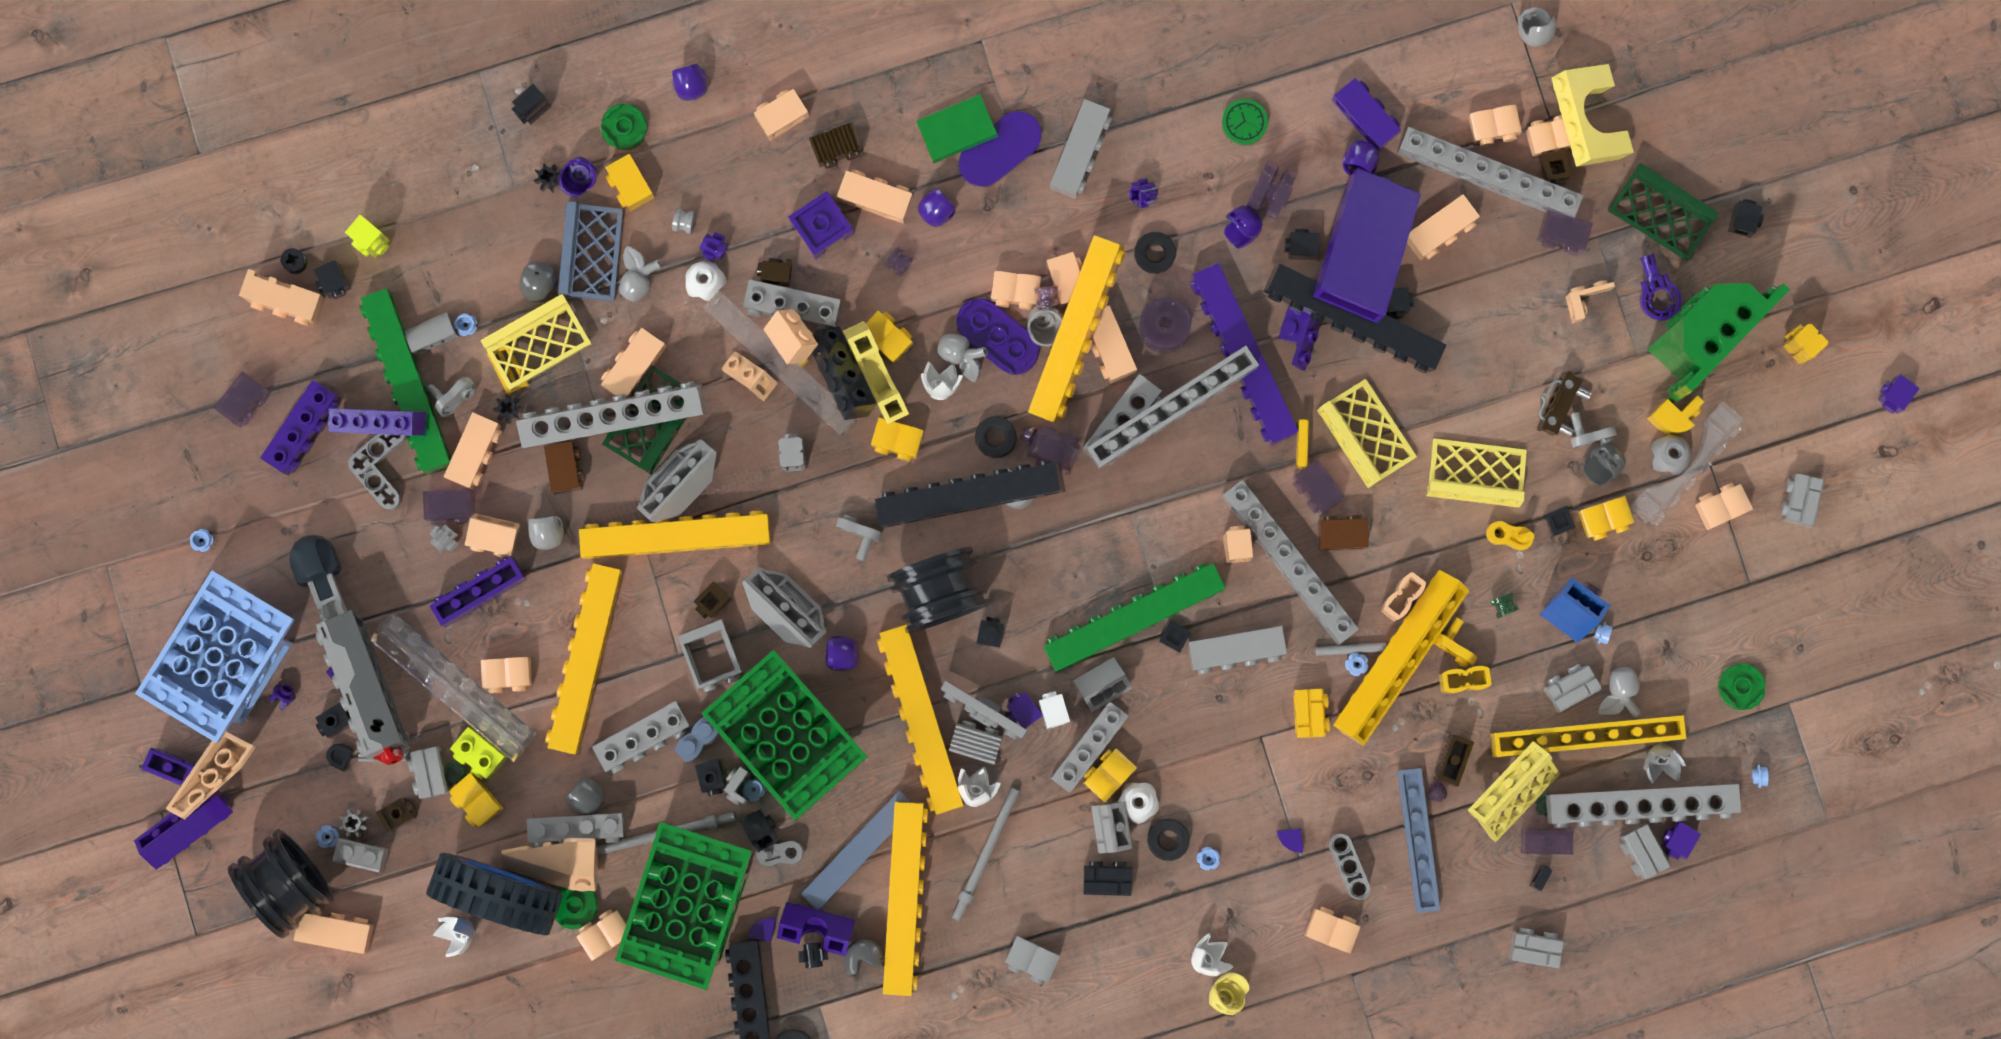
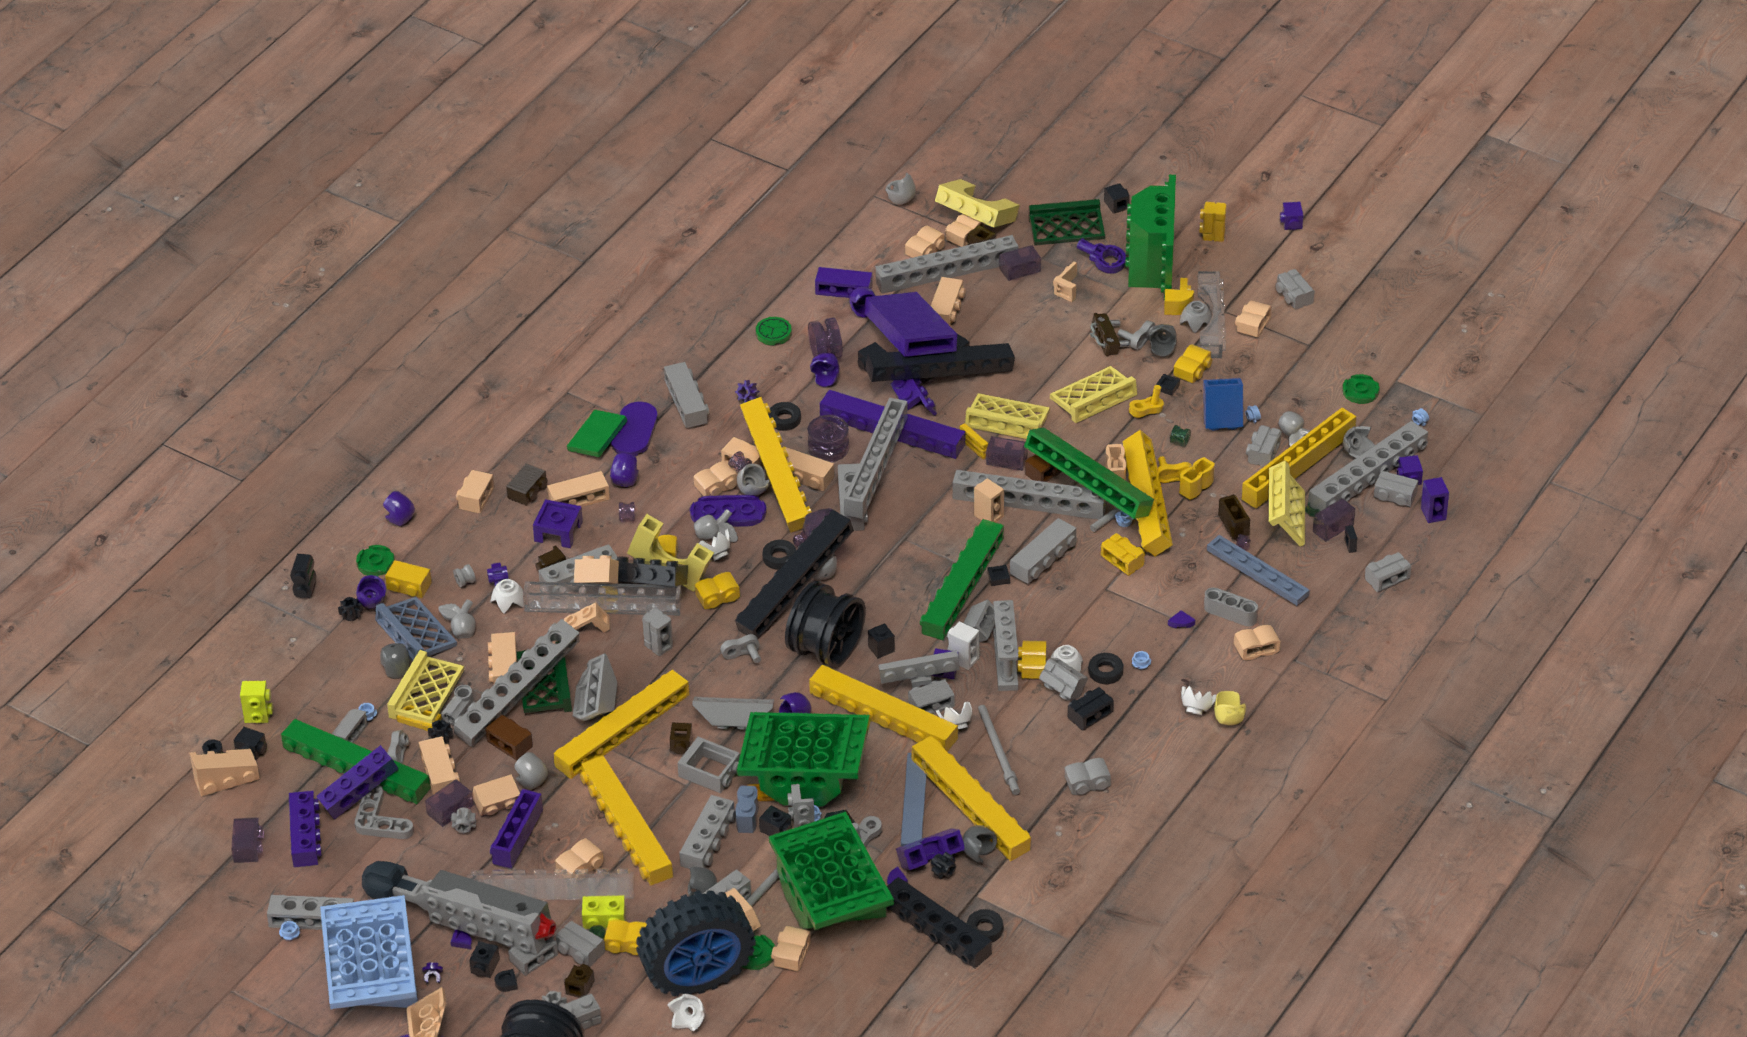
camera: 40 degrees left, 40 degrees down
(203, 513) = (300, 909): none -> light grey brick
(547, 388) = (459, 704): none -> light grey piece
(1355, 601) = (1089, 473): none -> green brick
(1662, 905) = (1434, 500): none -> dark purple brick

